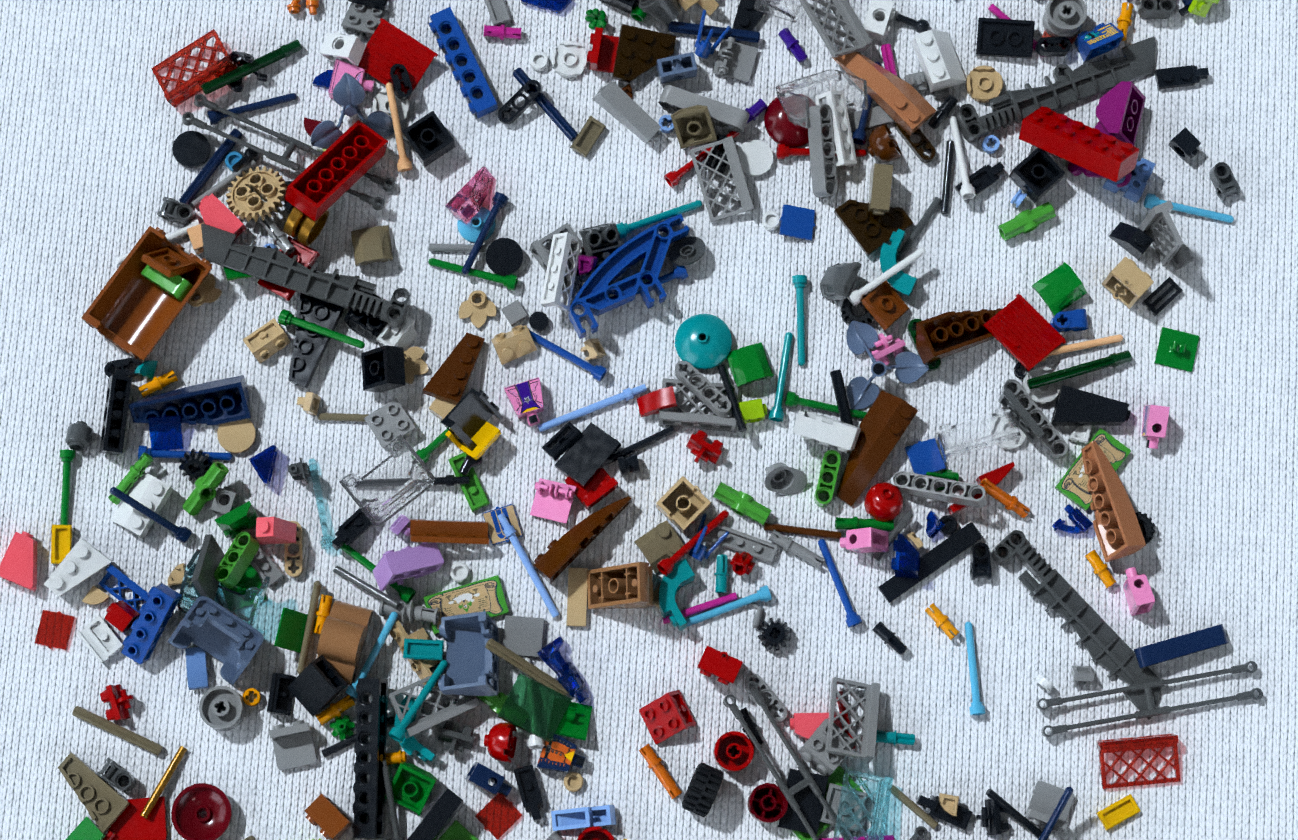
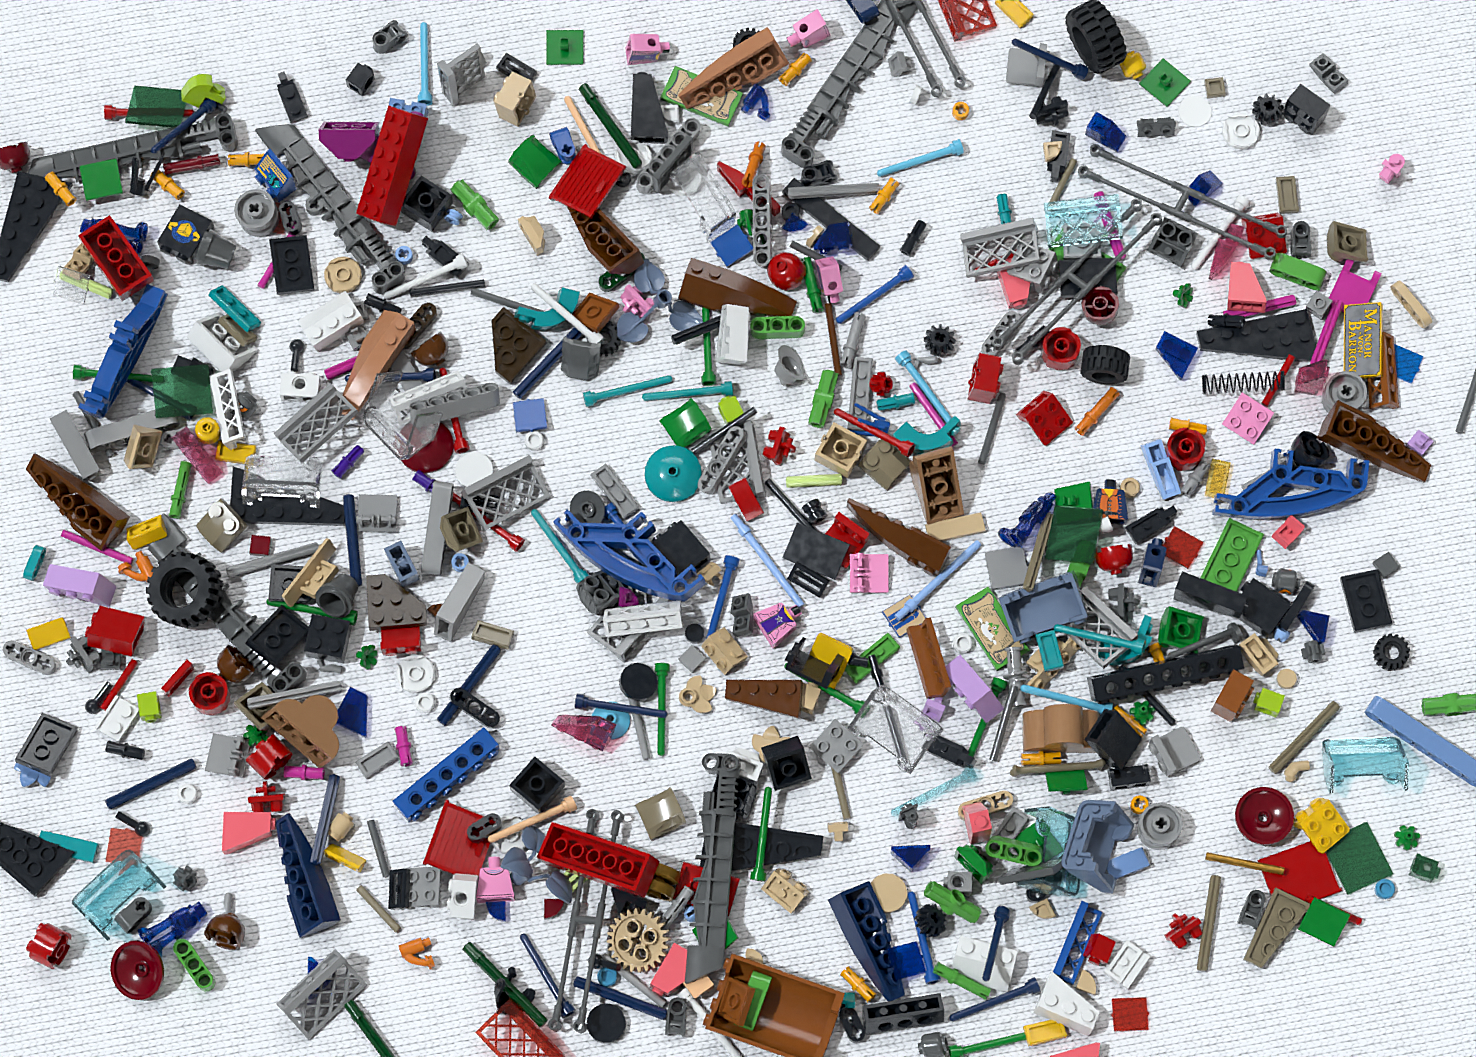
camera: 100 degrees left, 5 degrees down
(107, 542) = (1029, 987): none -> dark blue piece
(151, 623) = (1100, 913): blue brick -> none
(546, 371) = (743, 614): none -> dark grey slope
(623, 327) = (681, 547): none -> black brick
(661, 473) = (813, 480): none -> yellowish green axle
(670, 662) = (992, 427): none -> dark grey bar
(700, 283) = (614, 491): none -> light grey tile
(703, 47) = (372, 543): blue plant -> none
(843, 246) = (544, 366): none -> dark blue axle
(880, 188) = (479, 341): dark tan slope -> none
(958, 572) = (833, 190): none -> light grey axle
(981, 269) = (533, 233): none -> tan slope
(1018, 730) = (963, 116): none -> light orange bush
(1131, 239) = (468, 107): black slope -> none

